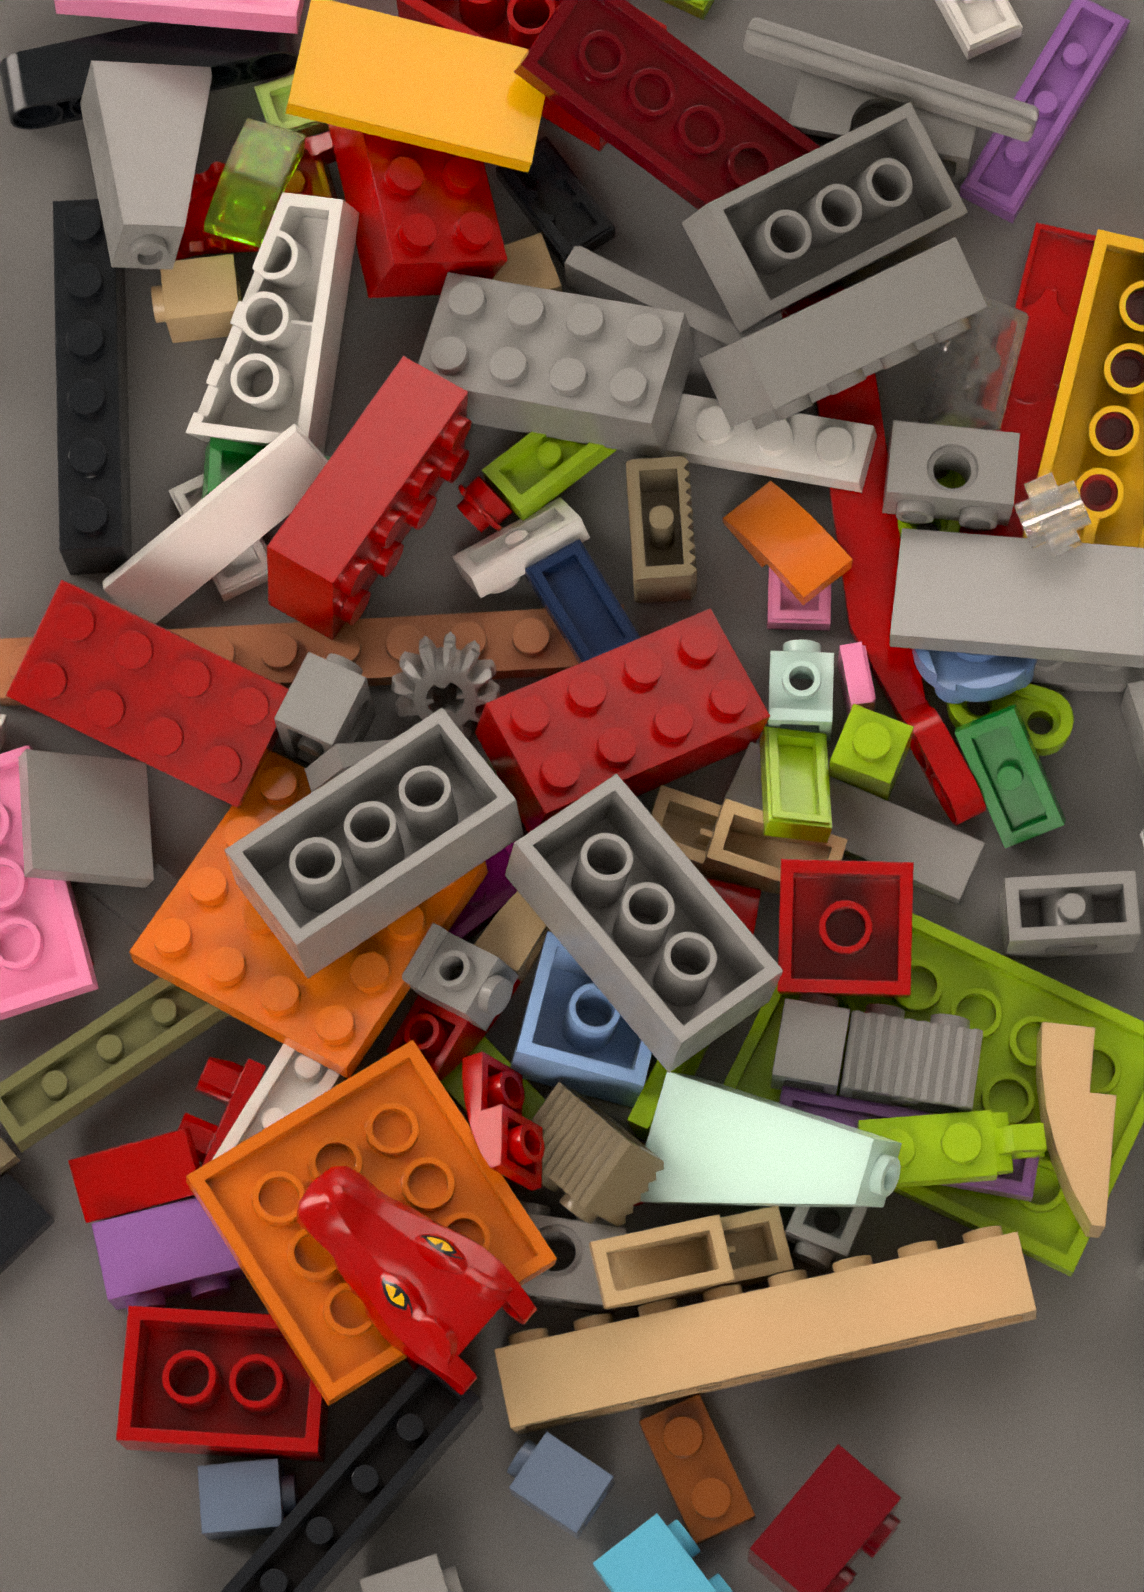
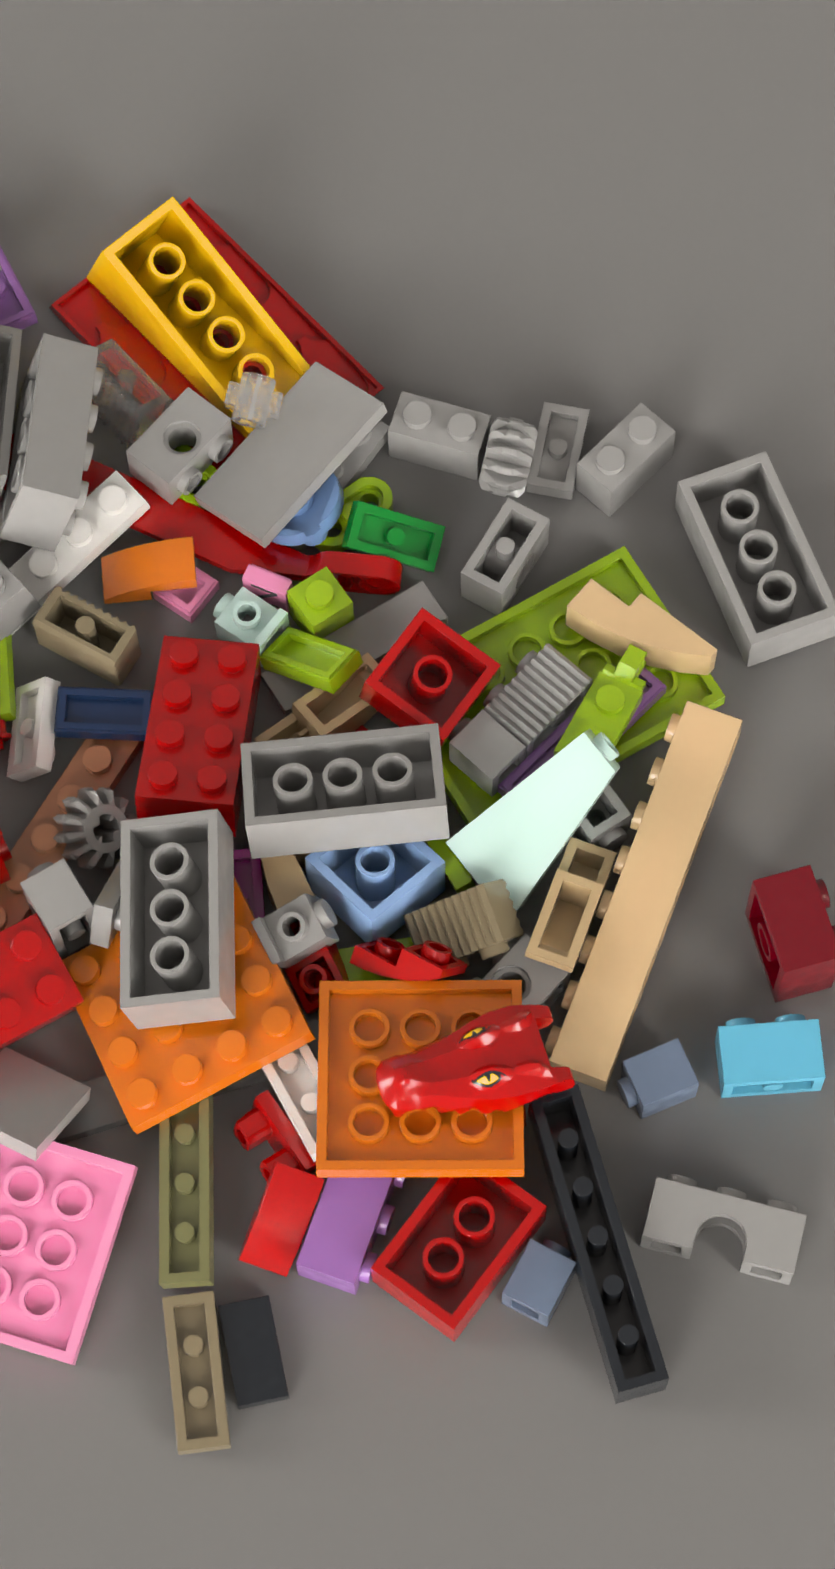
camera: 60 degrees left, 5 degrees down
(697, 1469) = (698, 994): dark orange plate -> none

